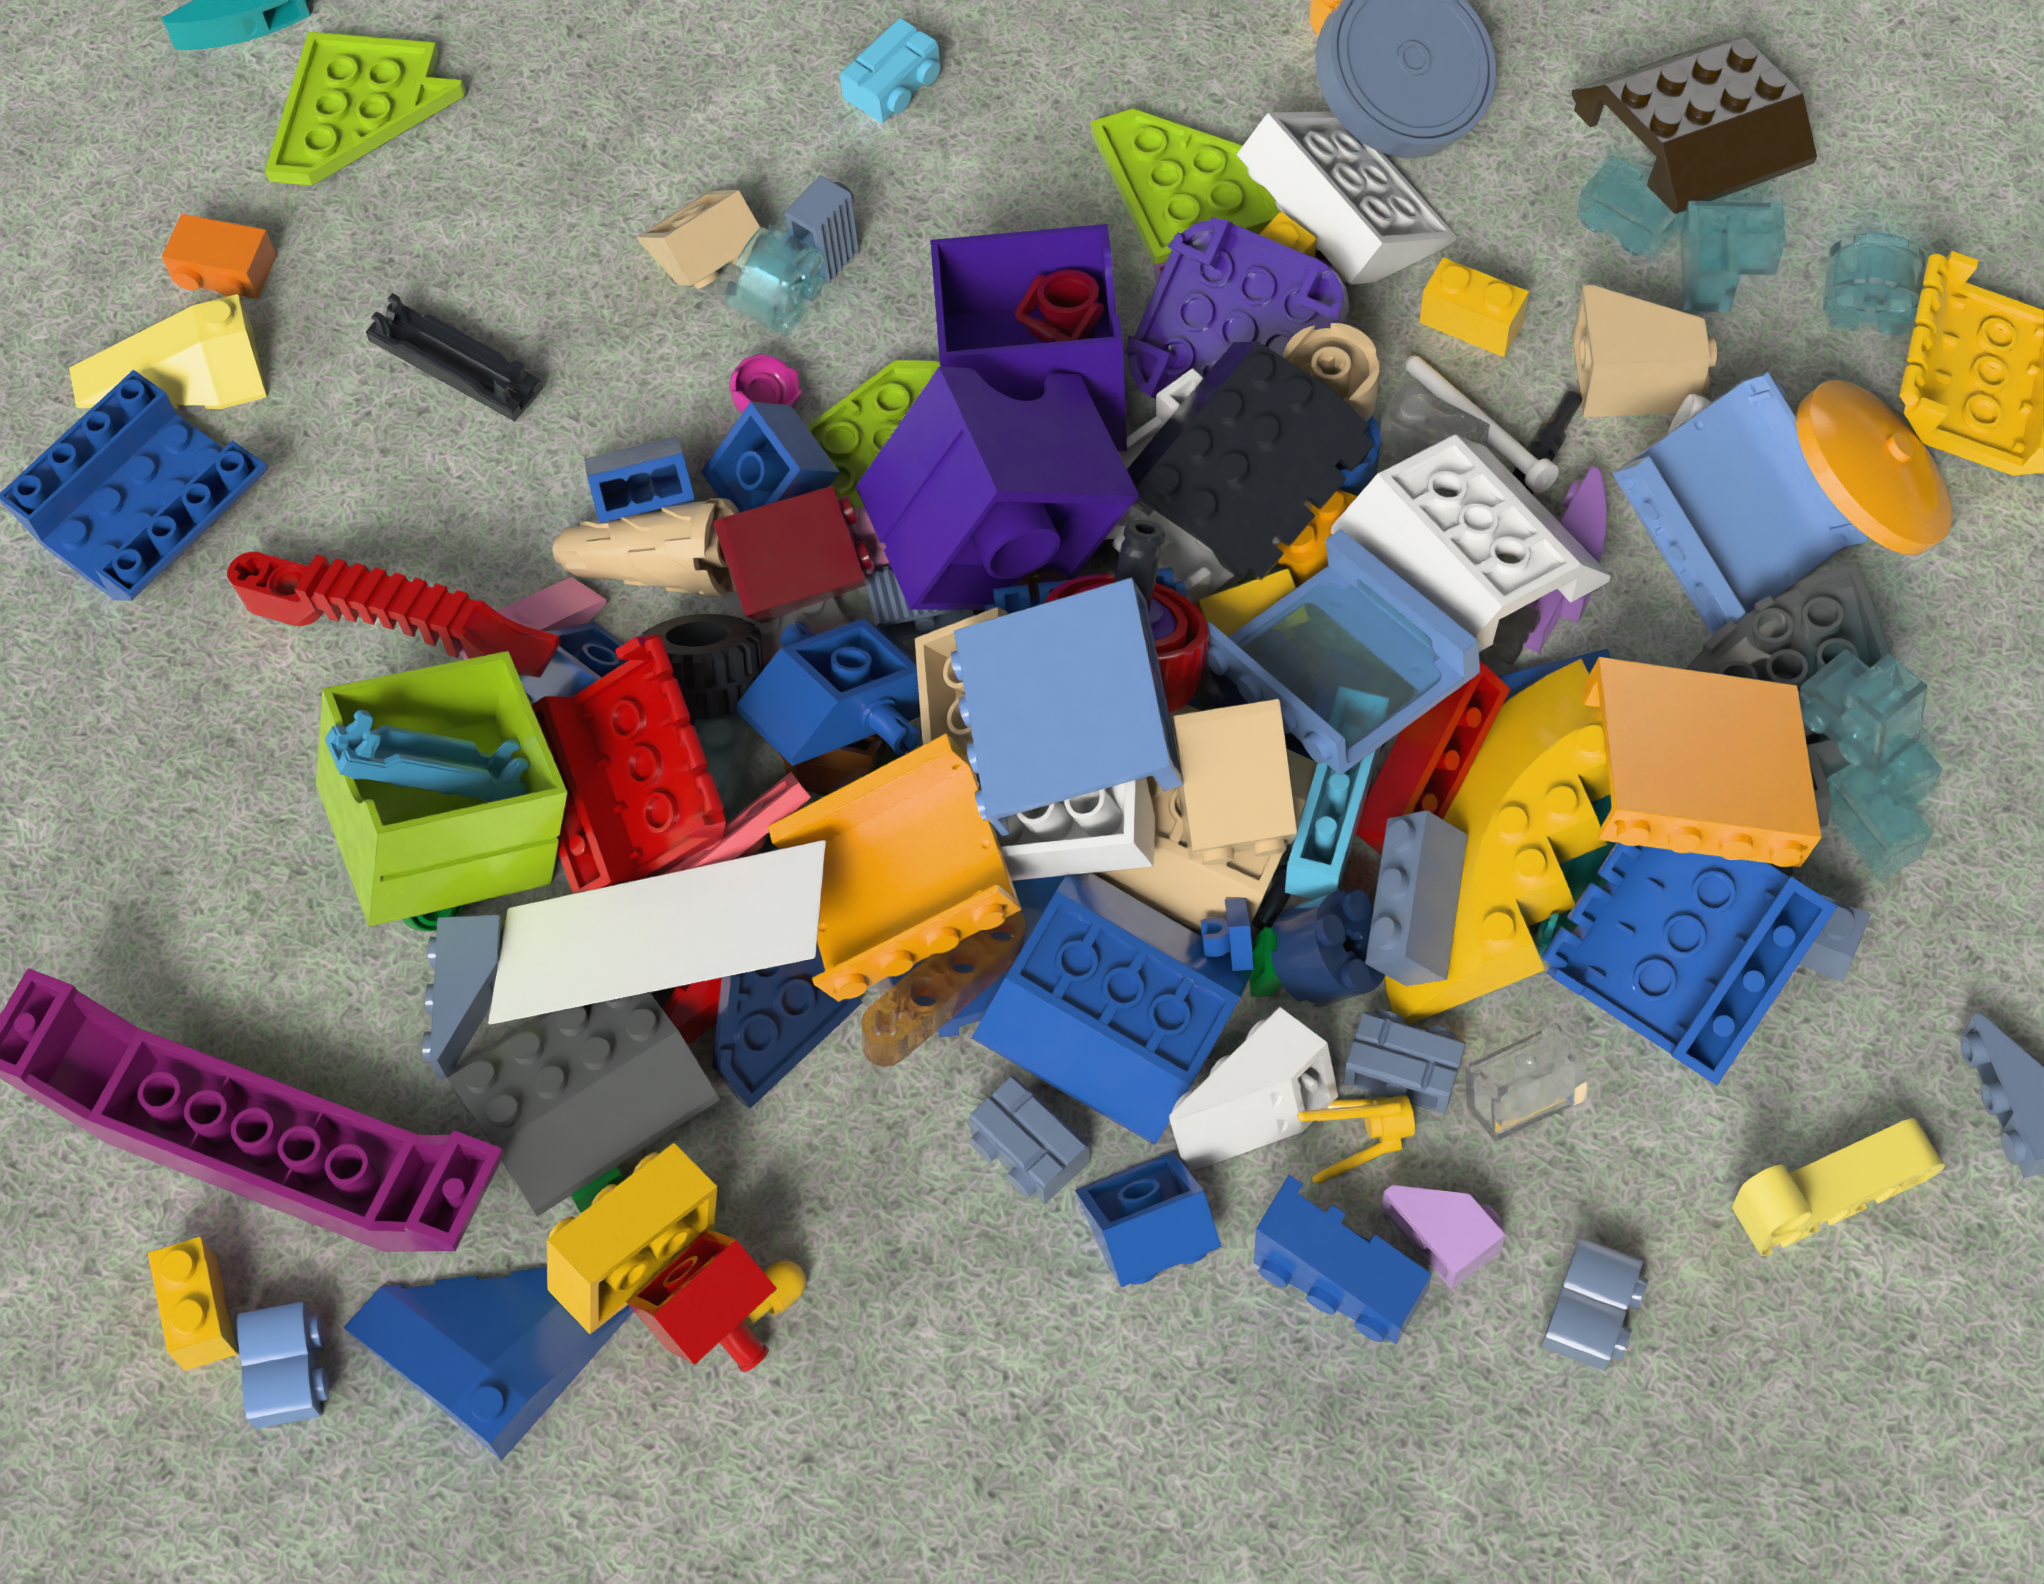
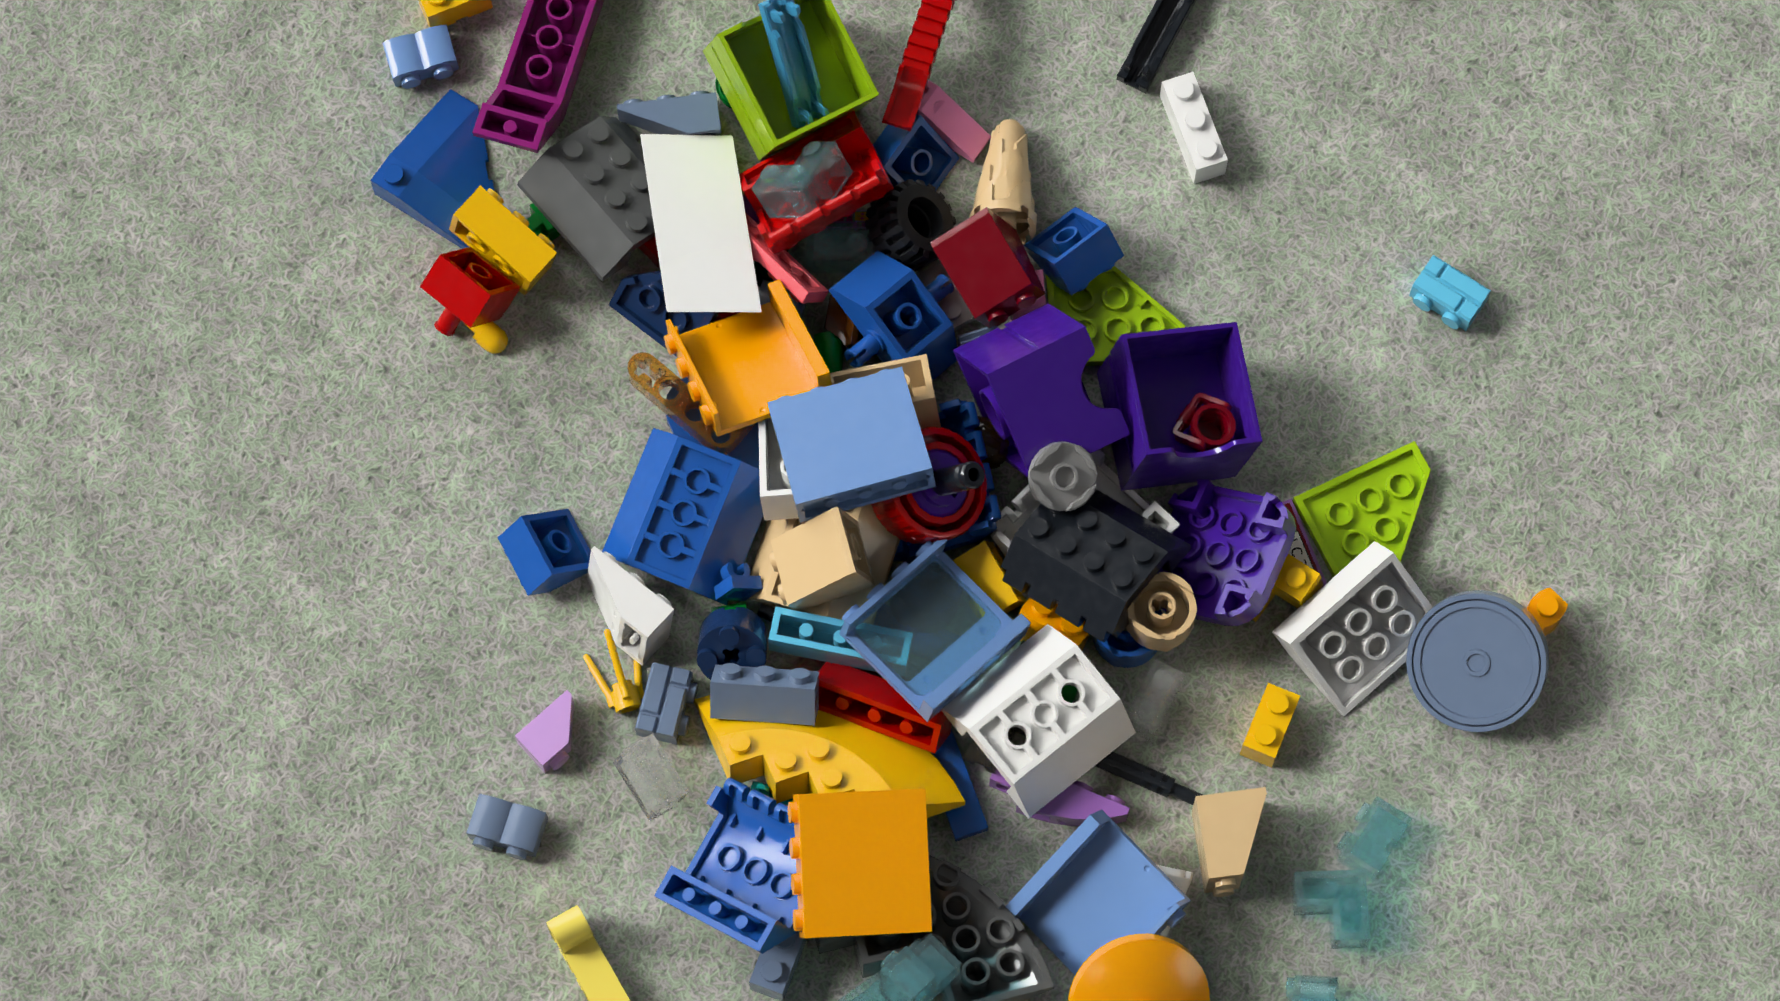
camera: 80 degrees right, 10 degrees up
(607, 327) = (1193, 127): none -> white brick
(629, 778) = (801, 187): none -> clear light blue brick
(638, 479) = (1055, 164): blue brick -> none
(701, 237) = (1281, 179): tan slope -> none
(764, 381) = (1156, 234): dark pink hair -> none
(775, 279) = (1240, 233): clear light blue brick -> none
(827, 222) = (1286, 260): sand blue brick -> none
(1027, 1141) = (594, 473): sand blue brick -> none
(1136, 455) = (1062, 476): none -> light grey tile
(1338, 1266) = (520, 666): blue wedge -> none
(1539, 473) = (1123, 773): white bar -> none
(1710, 118) = (1454, 882): dark brown slope -> none

